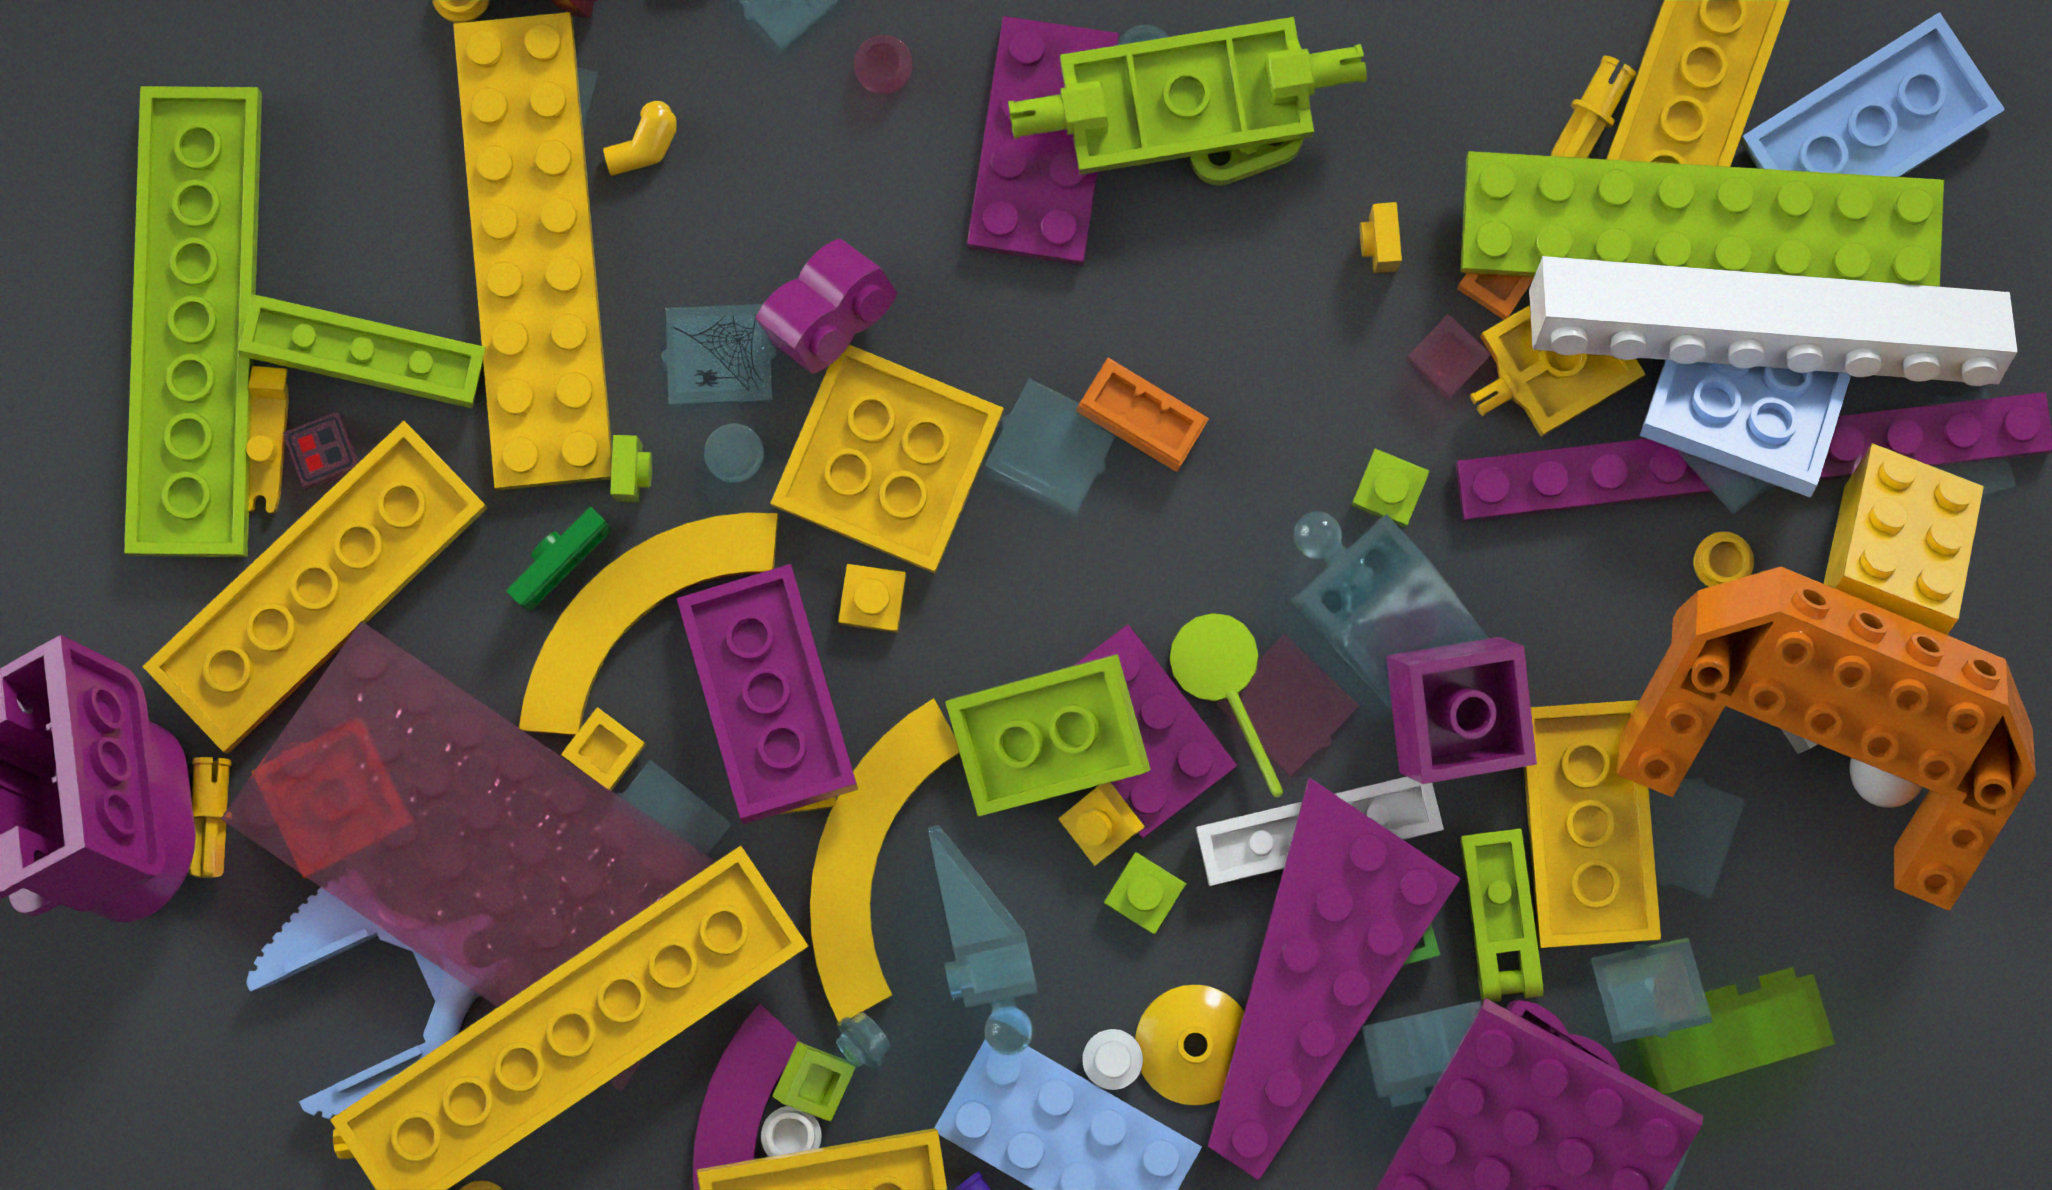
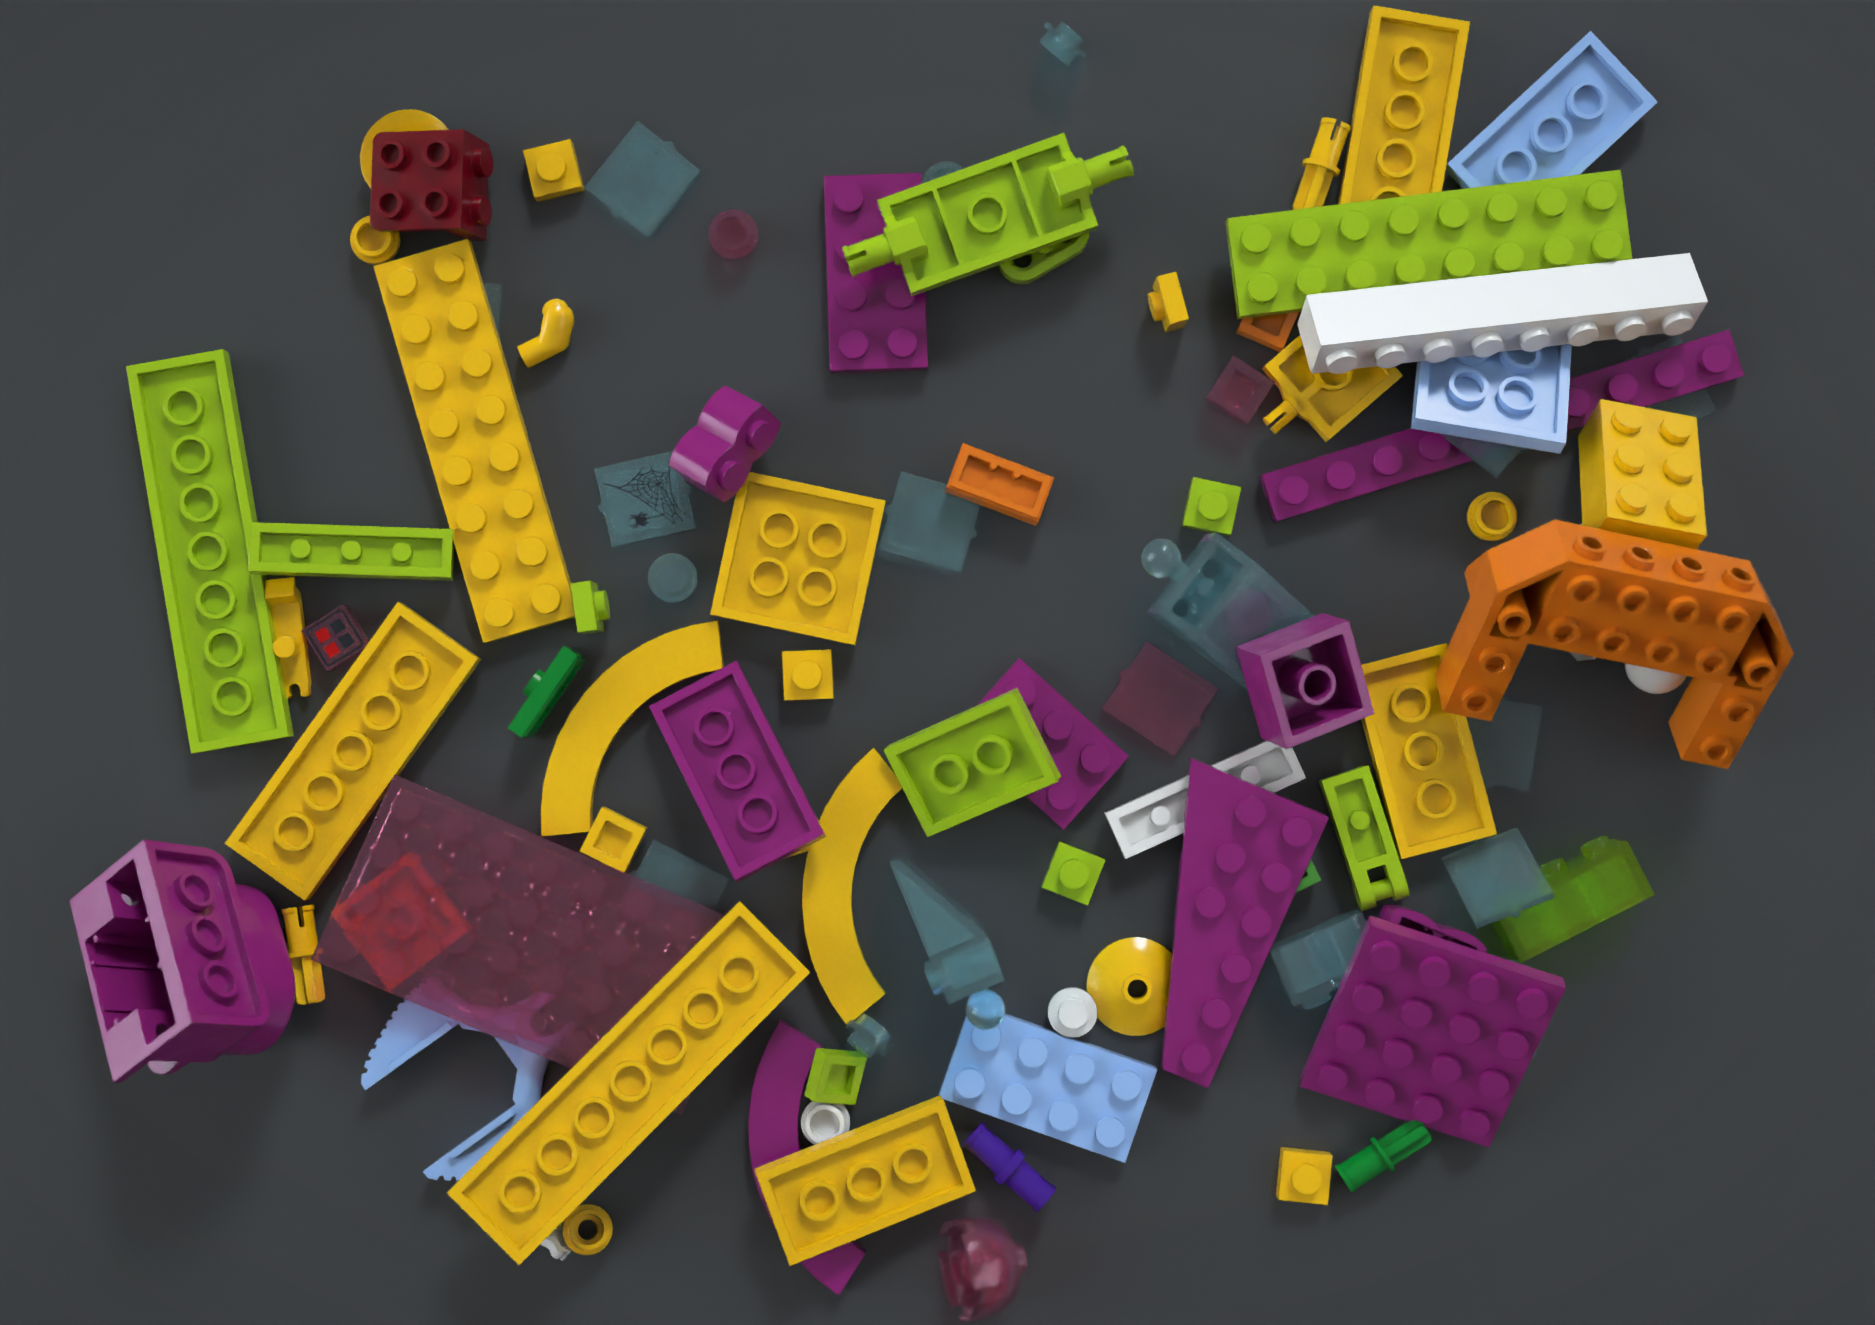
camera: 10 degrees left, 5 degrees up
(1101, 822) = (1028, 824): yellow plate -> none
(1216, 661) = (1096, 673): lime piece -> none

